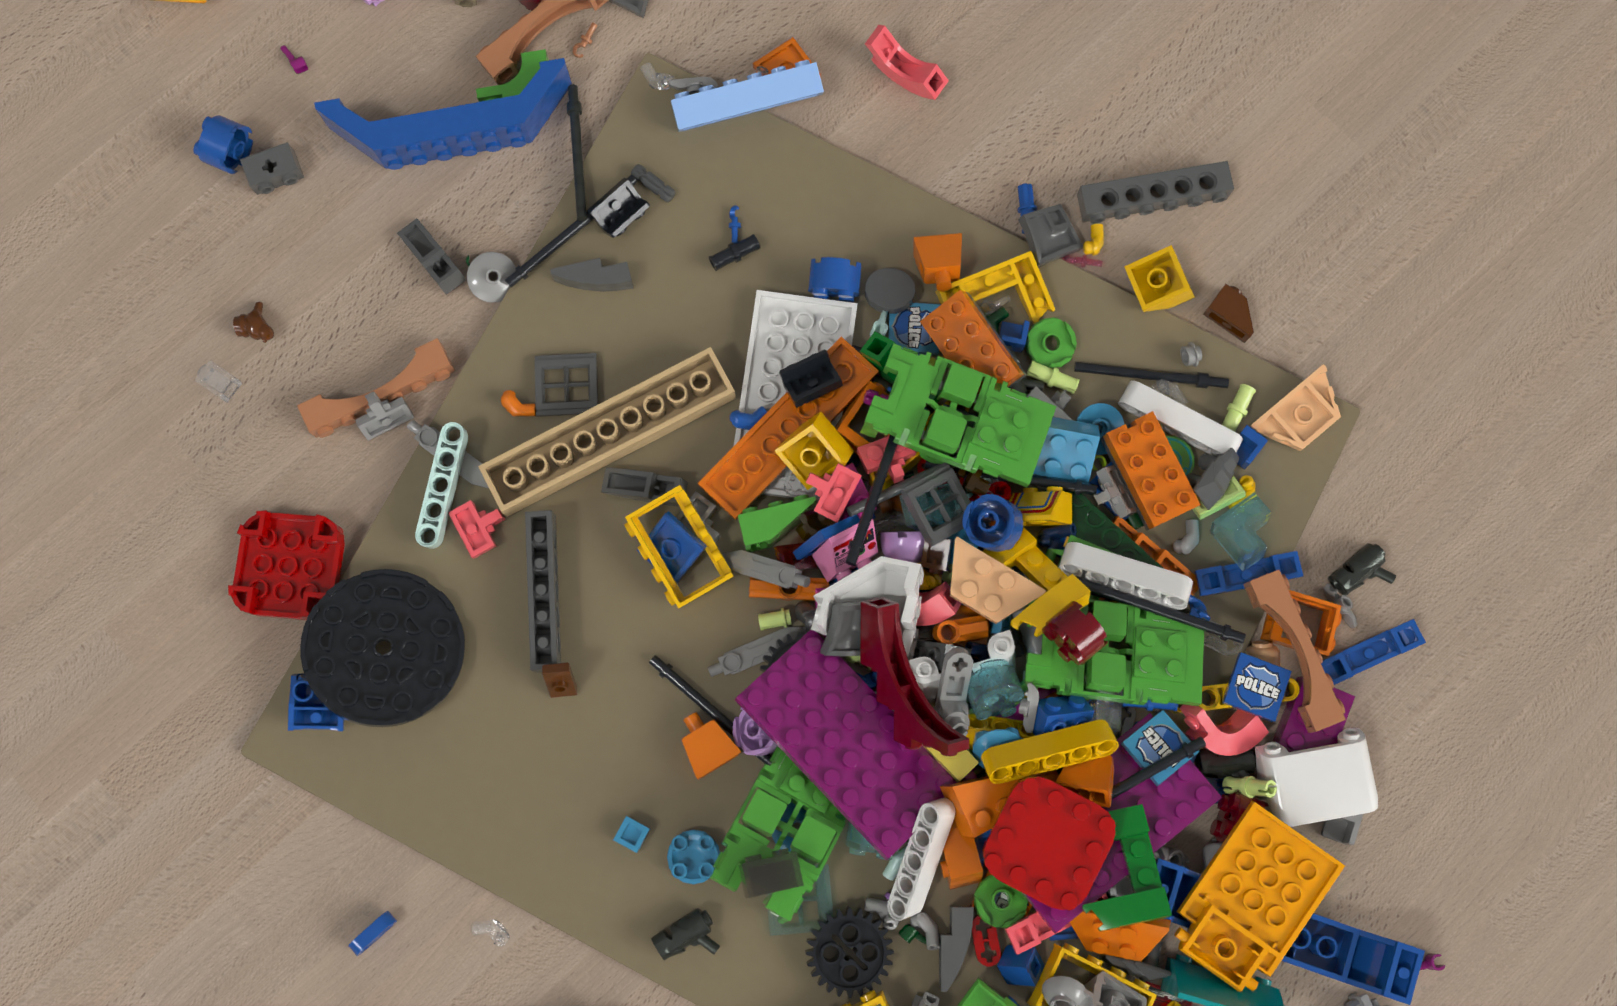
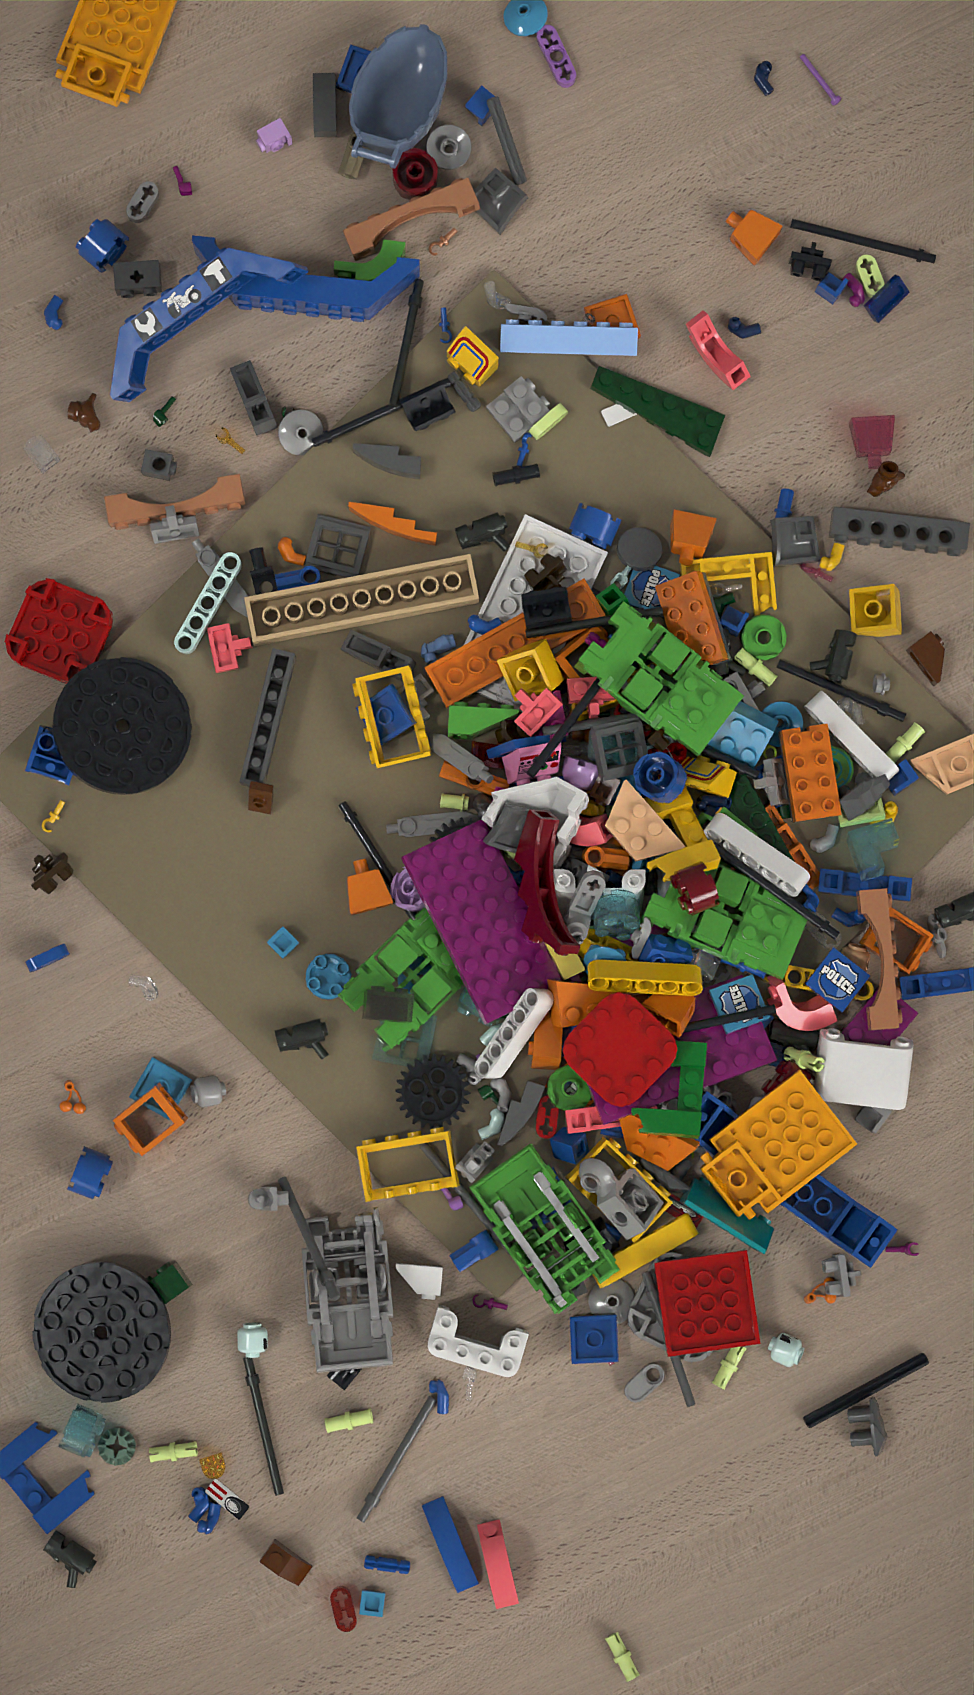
camera: 10 degrees right, 5 degrees up
(190, 231) = (51, 314): none -> blue arm
(255, 91) = (147, 205): none -> light grey beam
(326, 174) = (183, 306): none -> blue slope
(335, 304) = (159, 416): none -> dark green hand
(336, 769) = (54, 815): none -> yellow hand
(339, 350) = (149, 461): none -> dark grey brick
(344, 844) = (44, 878): none -> dark brown hips
(416, 307) = (228, 440): none -> clear yellow hand
(491, 434) = (261, 572): none -> black bracket
(530, 429) = (296, 578): none -> blue piece
(607, 339) = (384, 519): none -> orange slope
(612, 122) = (444, 324): none -> blue hand
(651, 143) = (472, 357): none -> yellow slope
(705, 458) = (436, 647): none -> medium blue arm
(716, 183) = (518, 408): none -> light grey plate
(718, 318) = (484, 529): none -> pearl dark grey piece
(752, 187) = (548, 421): none -> yellowish green beam
(776, 322) = (532, 548): none -> clear yellow hand
(803, 345) = (549, 576): none -> dark brown hips
(827, 154) = (616, 414): none -> white sticker
(855, 384) = (587, 623): none -> pearl dark grey bar
(885, 143) = (677, 416): none -> dark green wing
(922, 39) = (741, 330): none -> dark blue arm
(931, 968) = (495, 1125): none -> light aqua arm
(1095, 106) = (872, 437): none -> clear pink torso
(1122, 143) = (885, 478): none -> reddish brown animal
(1138, 341) = (839, 659): none -> pearl dark grey piece
(1242, 616) = (848, 919): none -> blue arm

